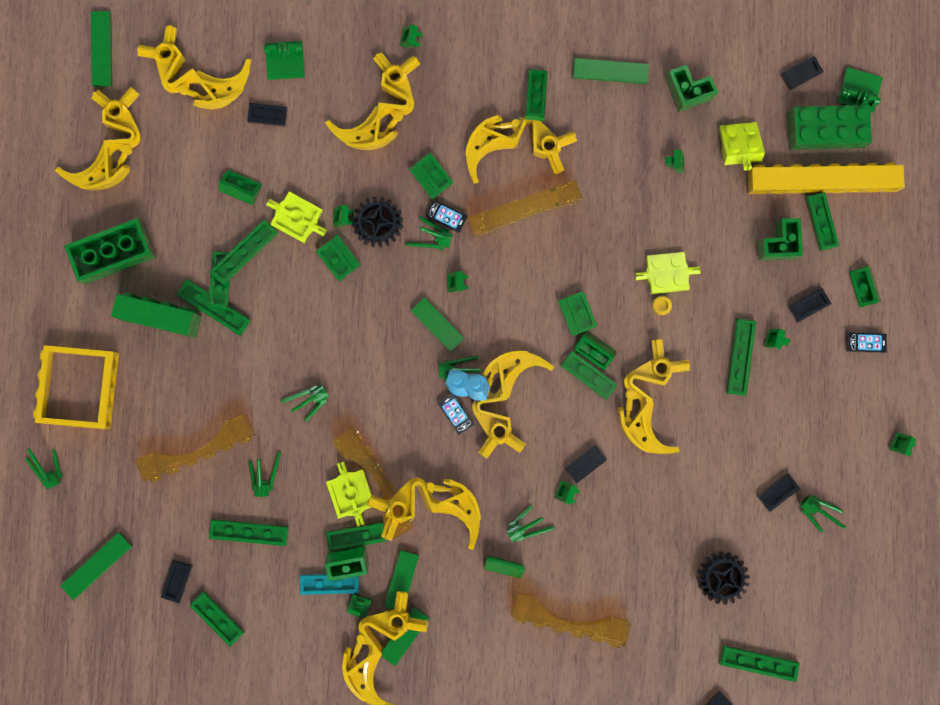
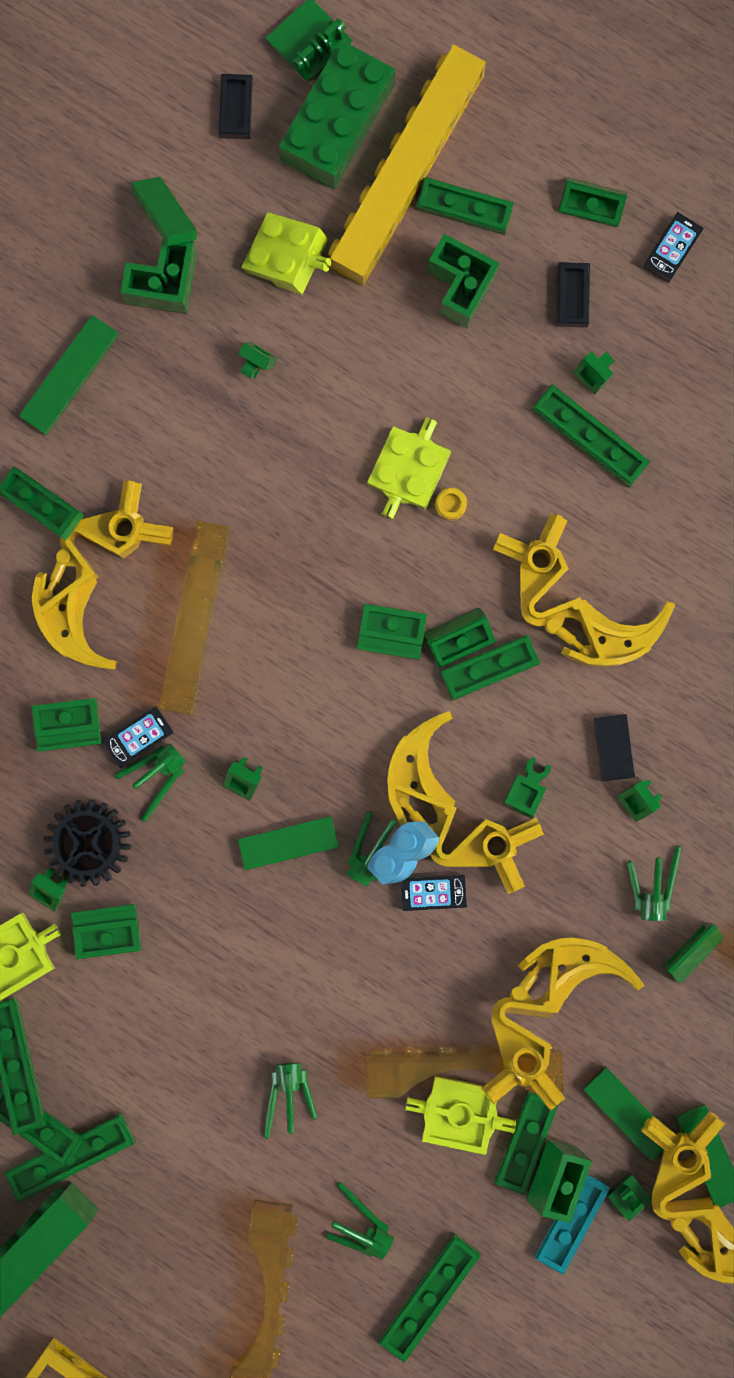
camera: 45 degrees left, 0 degrees up
(535, 431) = (525, 791): none -> green plate
(724, 68) = (164, 211): none -> green tile

